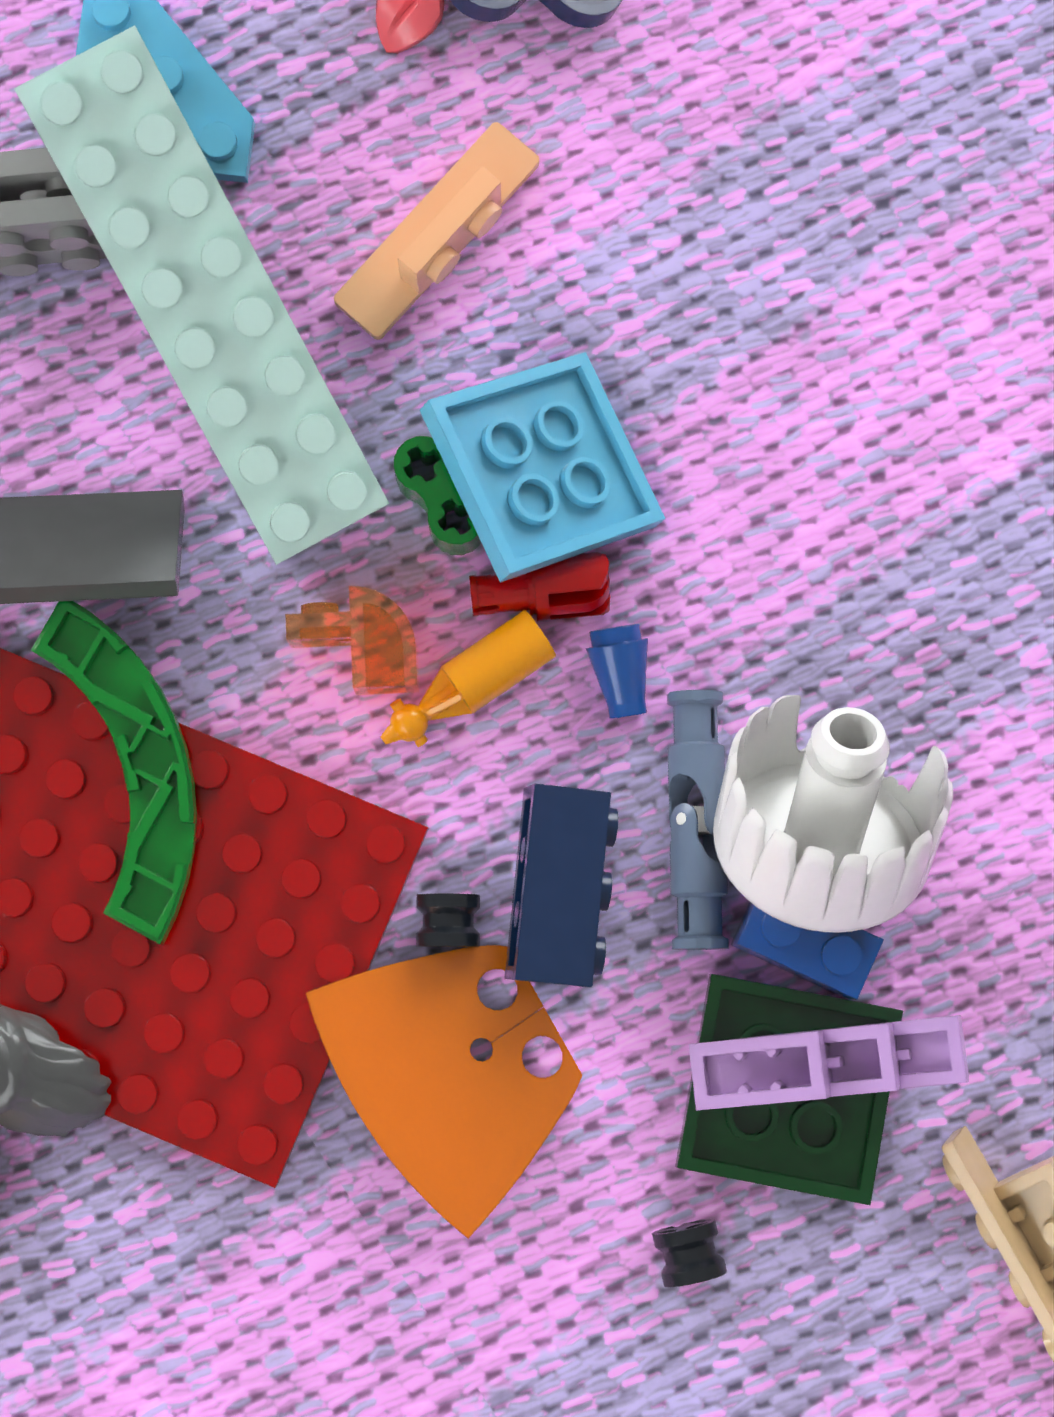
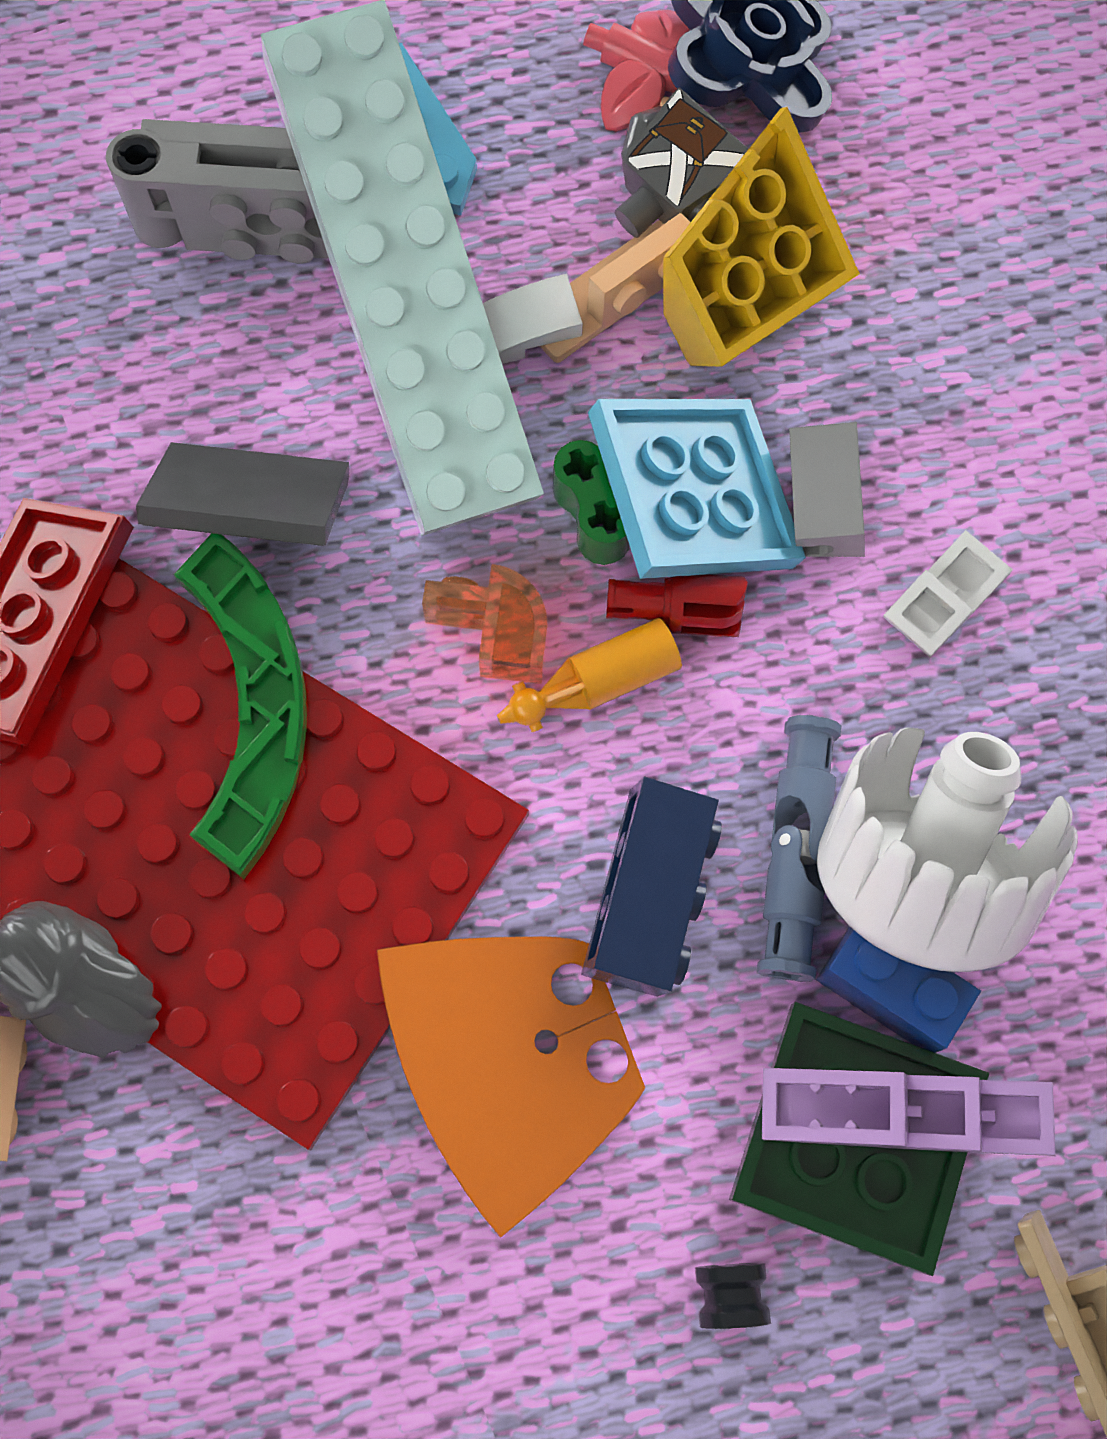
camera: 10 degrees right, 10 degrees down
(340, 299) = (533, 317): none -> white slope
(448, 920) = (533, 903): black wheel -> none
(483, 107) = (673, 162): none -> torso
(568, 201) = (754, 252): none -> yellow wedge
(620, 668) = (743, 688): blue cone -> none
(677, 441) = (827, 490): none -> light grey hinge
(813, 531) = (947, 593): none -> white slope

